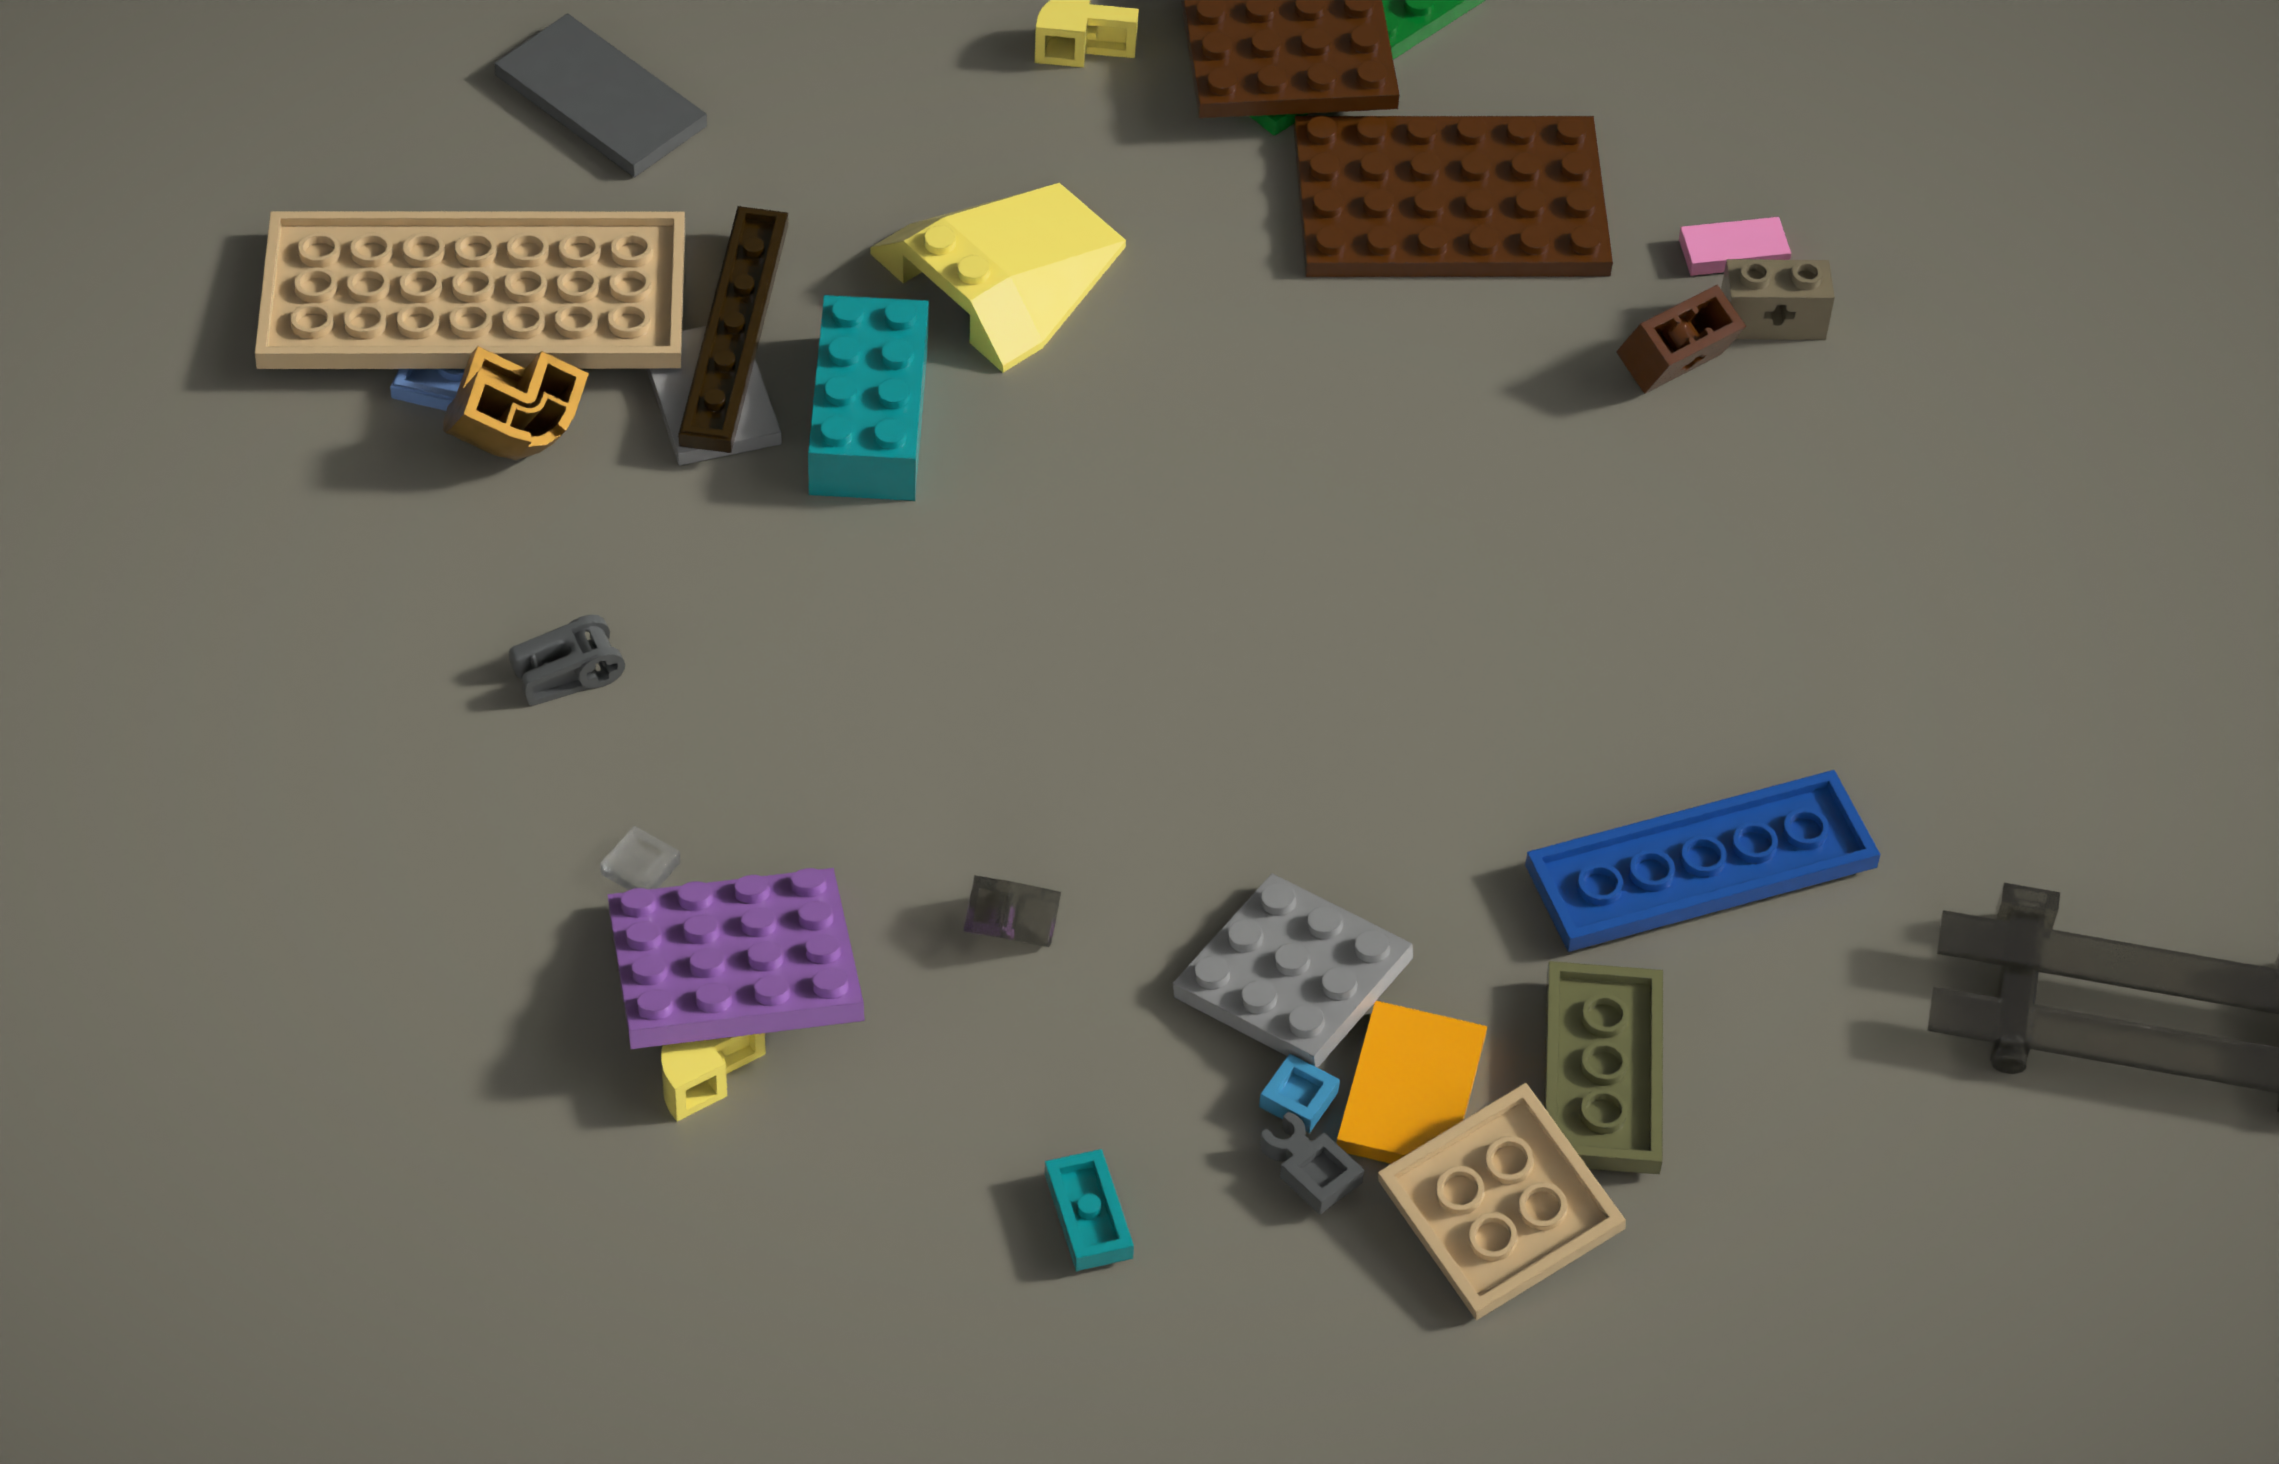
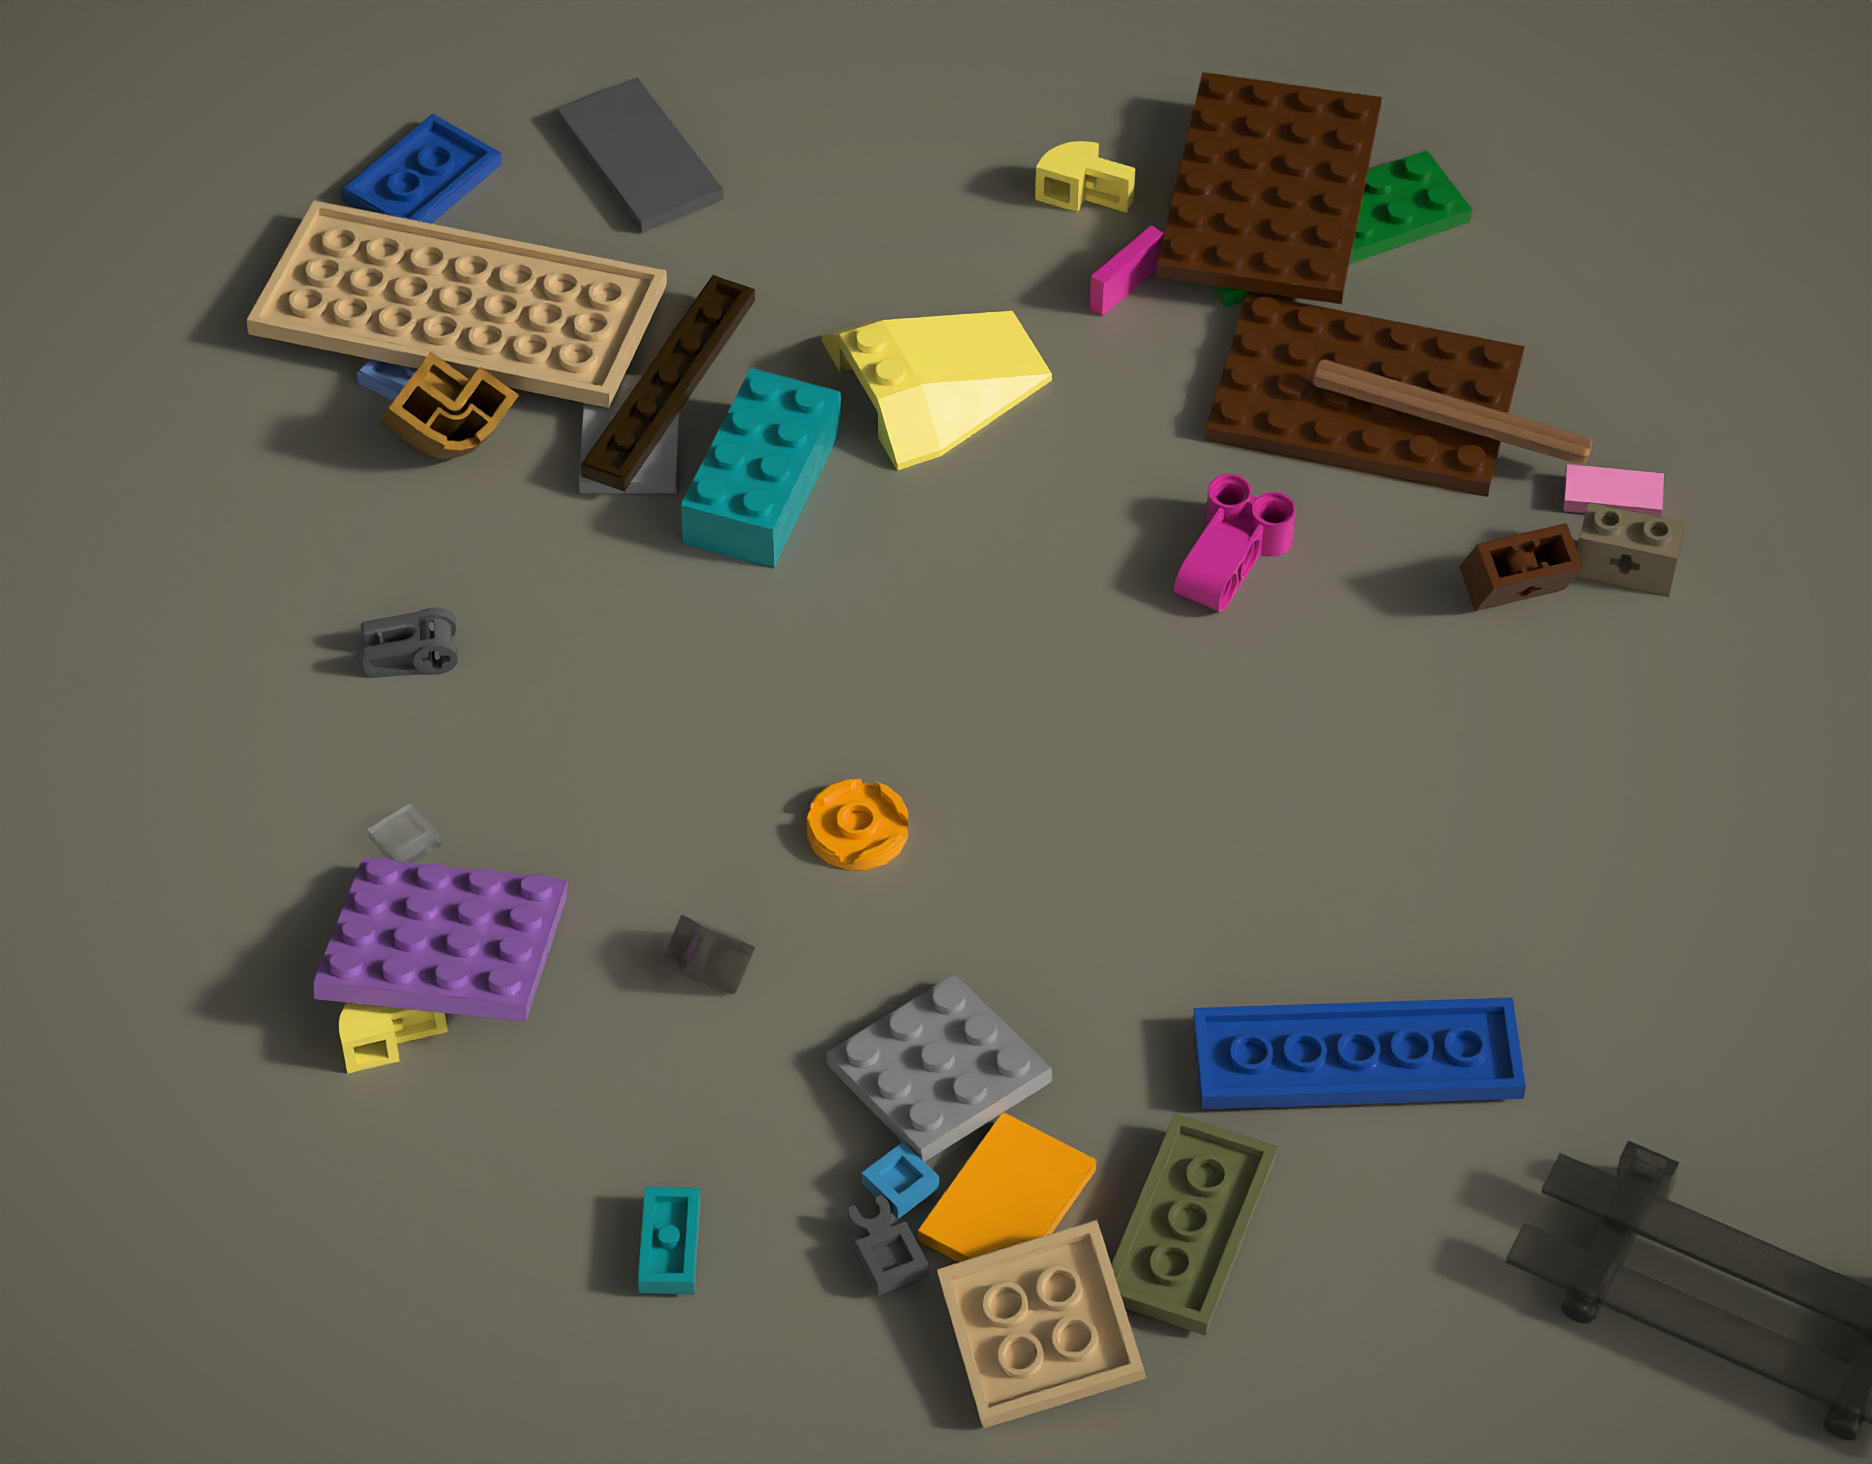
camera: 20 degrees right, 0 degrees up
(373, 159) = (423, 173): none -> blue tile
(1109, 745) = (857, 824): none -> light orange tile
(1164, 117) = (1125, 270): none -> dark pink tile
(1382, 363) = (1235, 537): none -> dark pink piece
(1553, 196) = (1453, 412): none -> medium nougat axle

